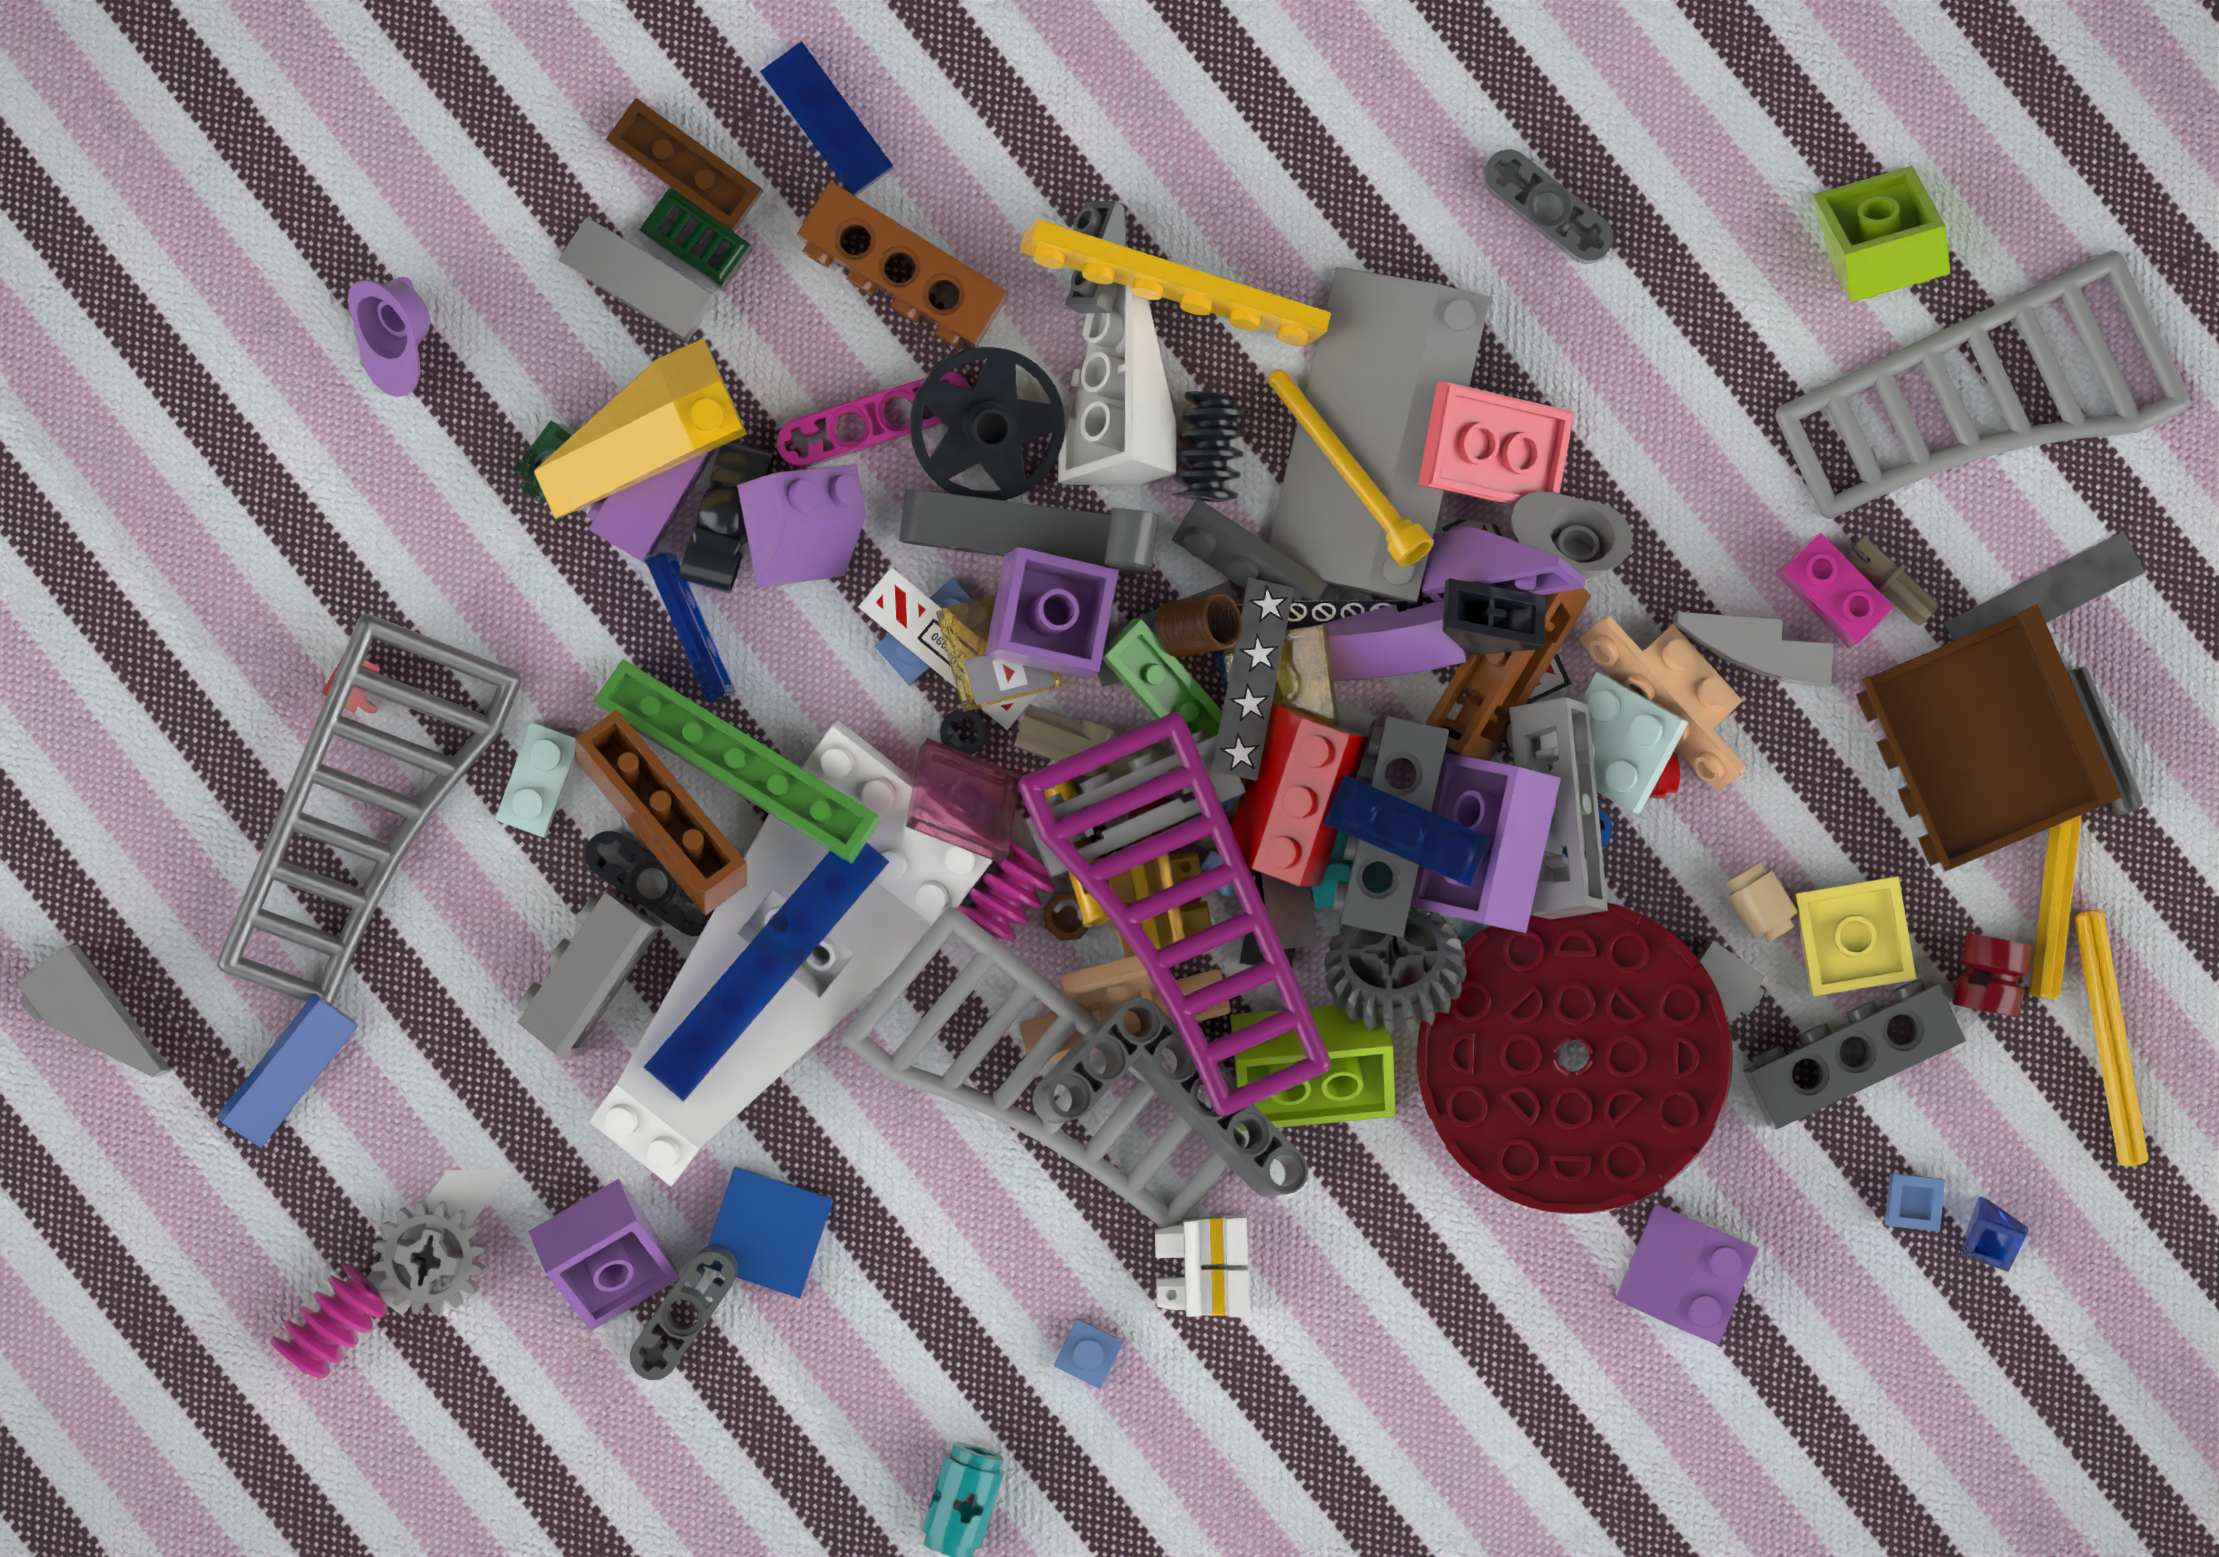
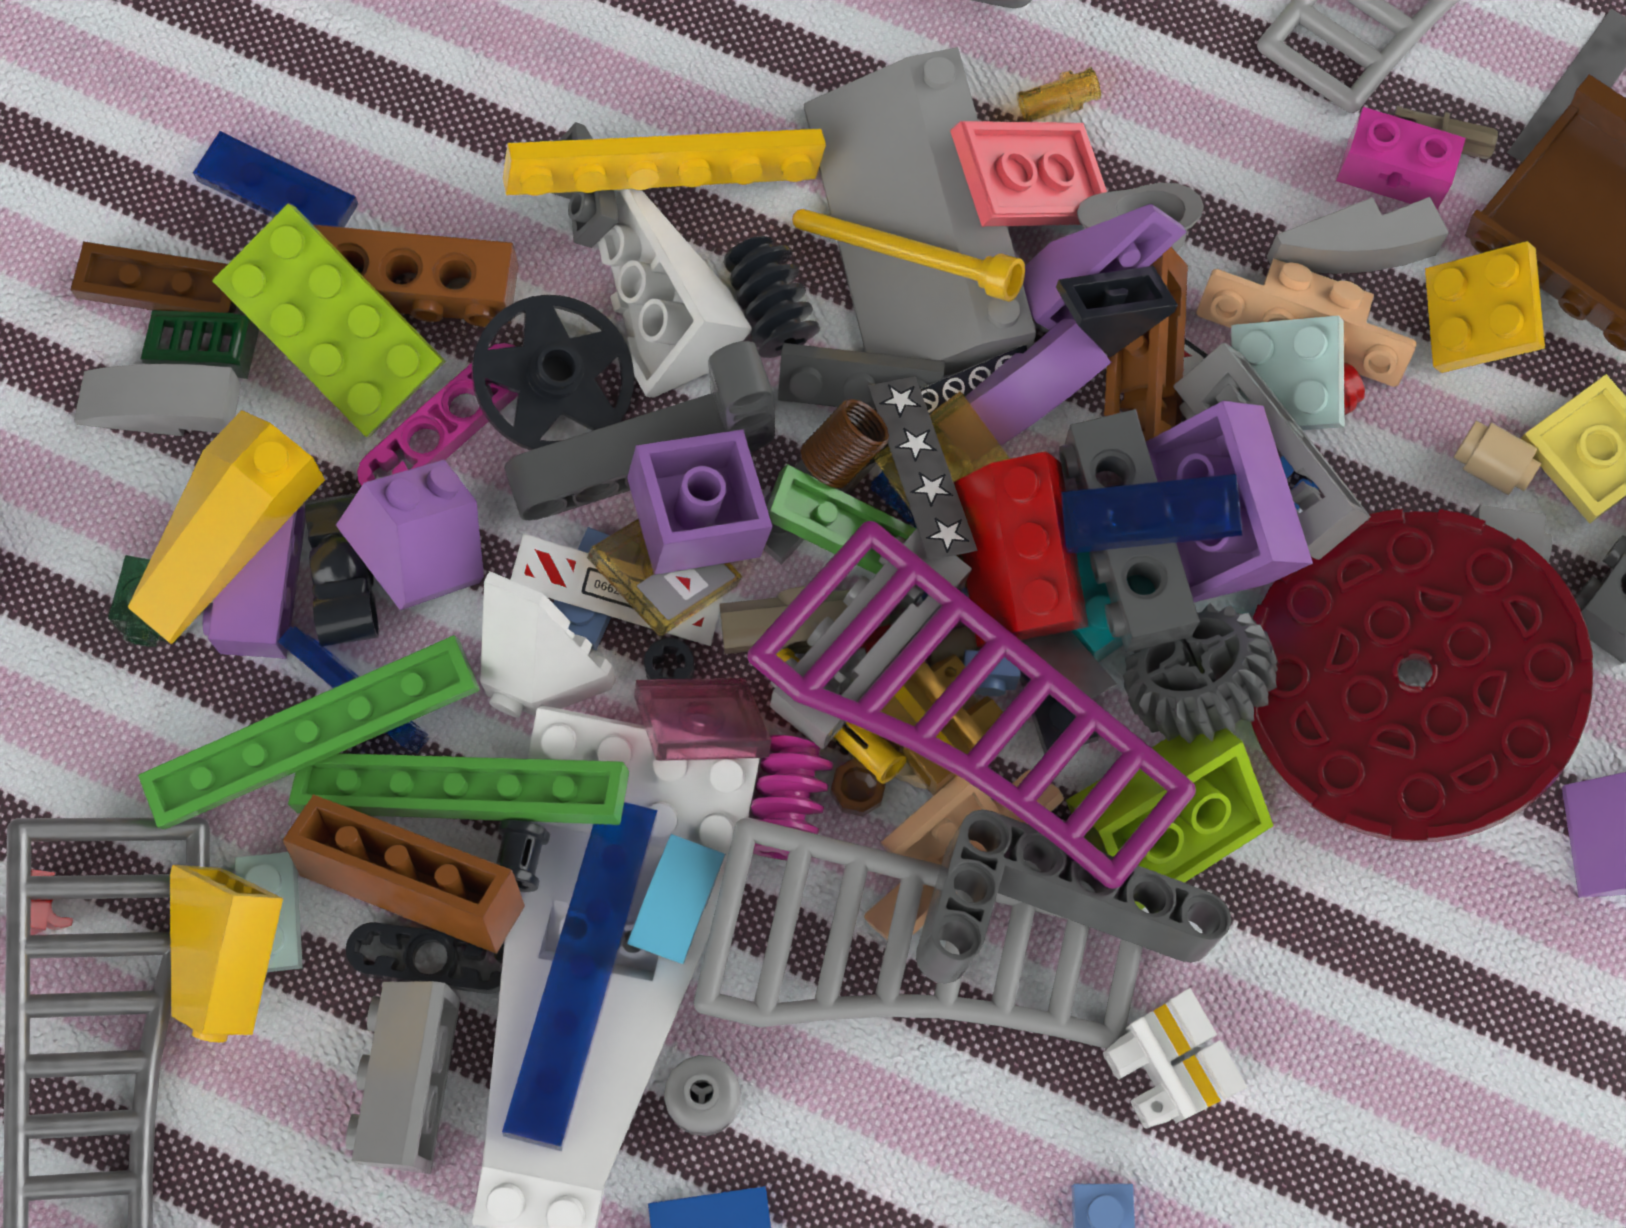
camera: 30 degrees left, 15 degrees down
(486, 796) = (219, 949): none -> yellow slope
(636, 656) = (308, 732): none -> bright green plate
(761, 841) = (521, 851): none -> black bush
(815, 286) = (329, 320): none -> lime plate
(836, 1106) = (702, 1117): none -> light grey head
(847, 688) = (532, 654): none -> white wedge
(870, 942) = (676, 899): none -> medium azure slope
(1567, 374) = (1059, 95): none -> clear yellow pin
(1825, 765) = (1484, 307): none -> yellow plate

